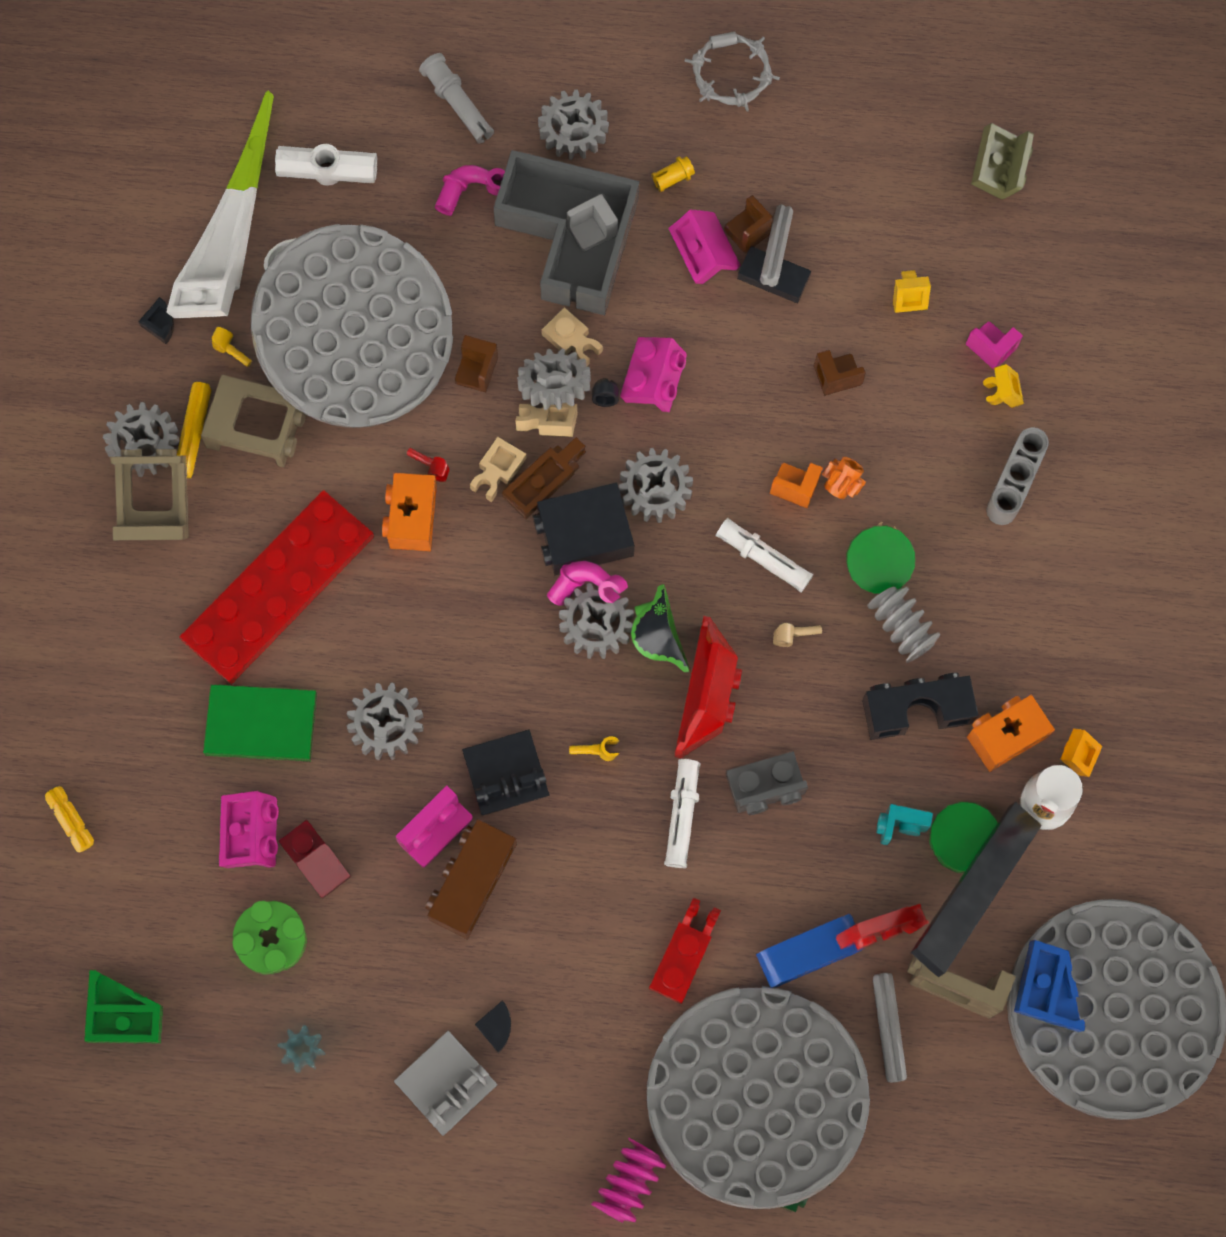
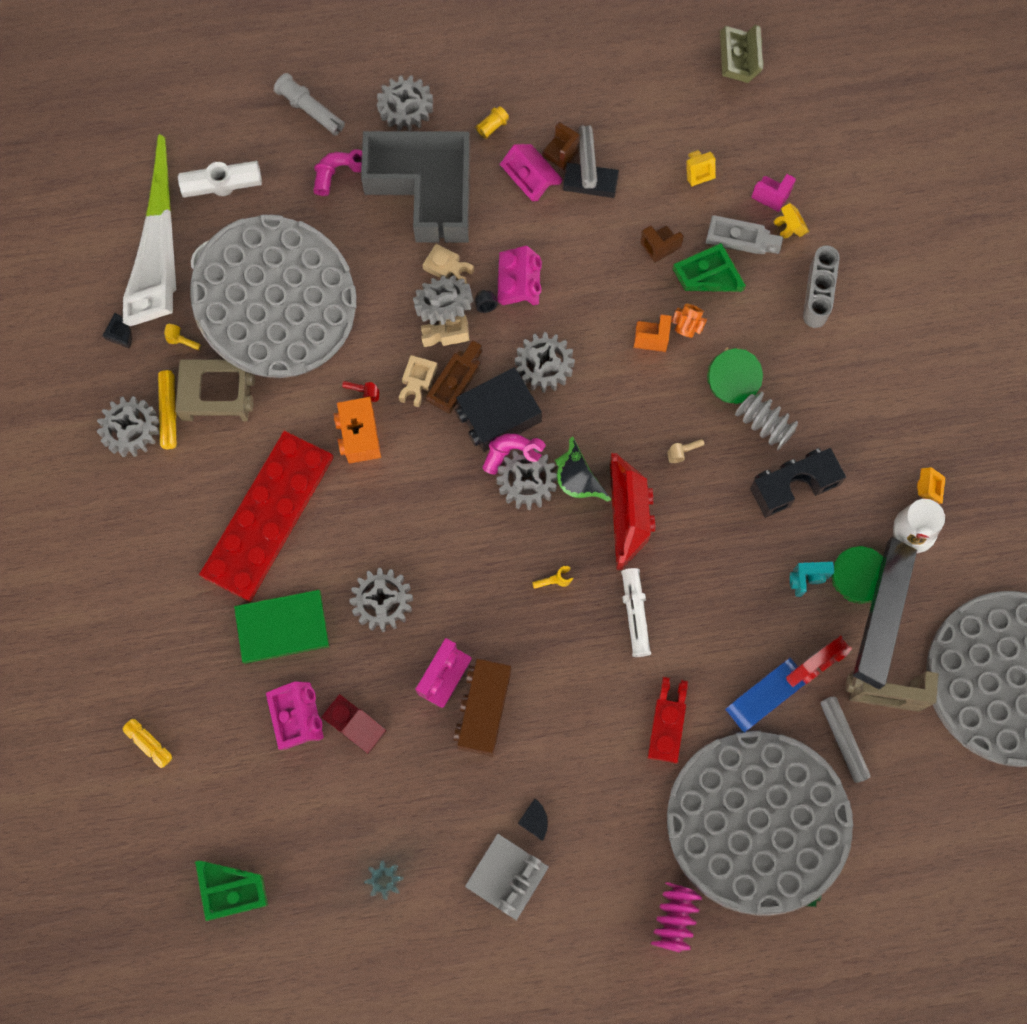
camera: 10 degrees left, 0 degrees up
(150, 524) = (154, 491): dark tan window -> none
(275, 957) = (319, 805): bright green plate -> none
(476, 363) = (379, 303): reddish brown panel -> none
(505, 772) = (488, 616): black hinge -> none
(592, 223) = (440, 173): light grey panel -> none
(724, 40) = (505, 12): light grey piece -> none
(766, 783) = (695, 571): dark grey bracket -> none
(769, 558) = (643, 395): white pin -> none
(886, 424) = (709, 272): none -> green wing
(939, 390) = (742, 236): none -> light grey hinge
(998, 748) = (885, 475): orange brick -> none
(1048, 987) = (961, 675): blue wing -> none

